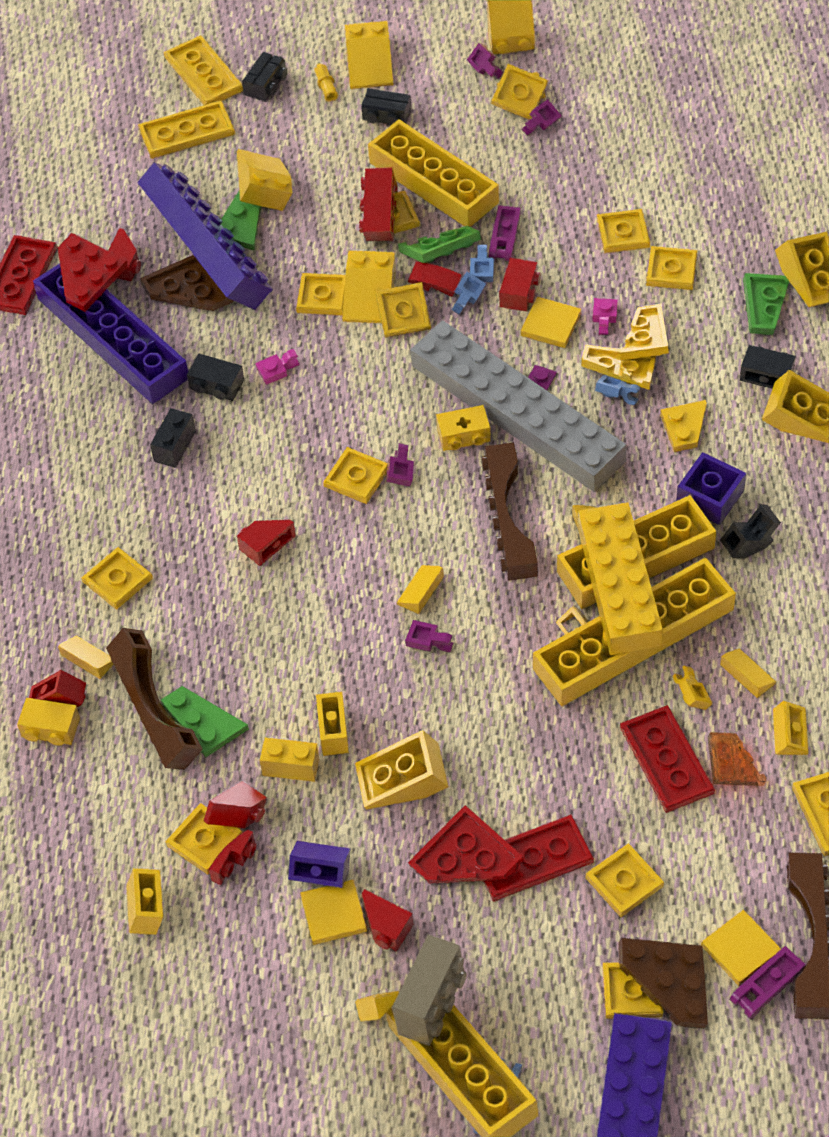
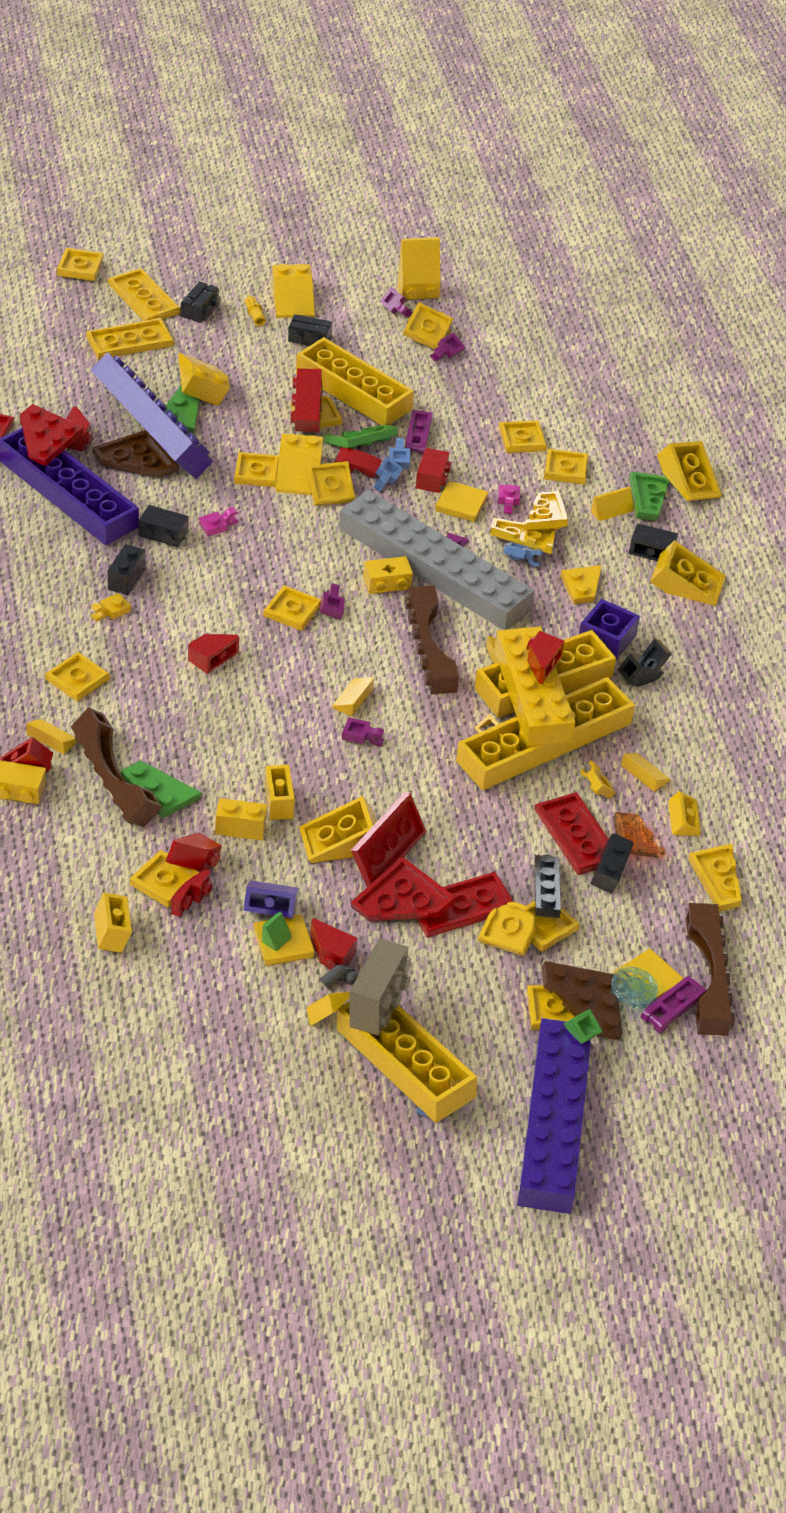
camera: 10 degrees left, 10 degrees down
(133, 35) = (80, 264): none -> yellow plate
(157, 485) = (111, 606): none -> yellow plate
(323, 907) = (276, 932): none -> bright green slope
(393, 954) = (339, 973): none -> dark grey arm
(451, 782) = (389, 839): none -> red tile
(584, 891) = (509, 928): none -> yellow tile
(628, 546) = (544, 654): none -> red slope
(628, 835) = (547, 886): none -> plate
(660, 1026) = (583, 1026): none -> bright green slope
(703, 802) = (612, 863): none -> black brick
(722, 965) = (634, 987): none -> clear light blue wheel
(723, 317) = (612, 504): none -> yellow slope

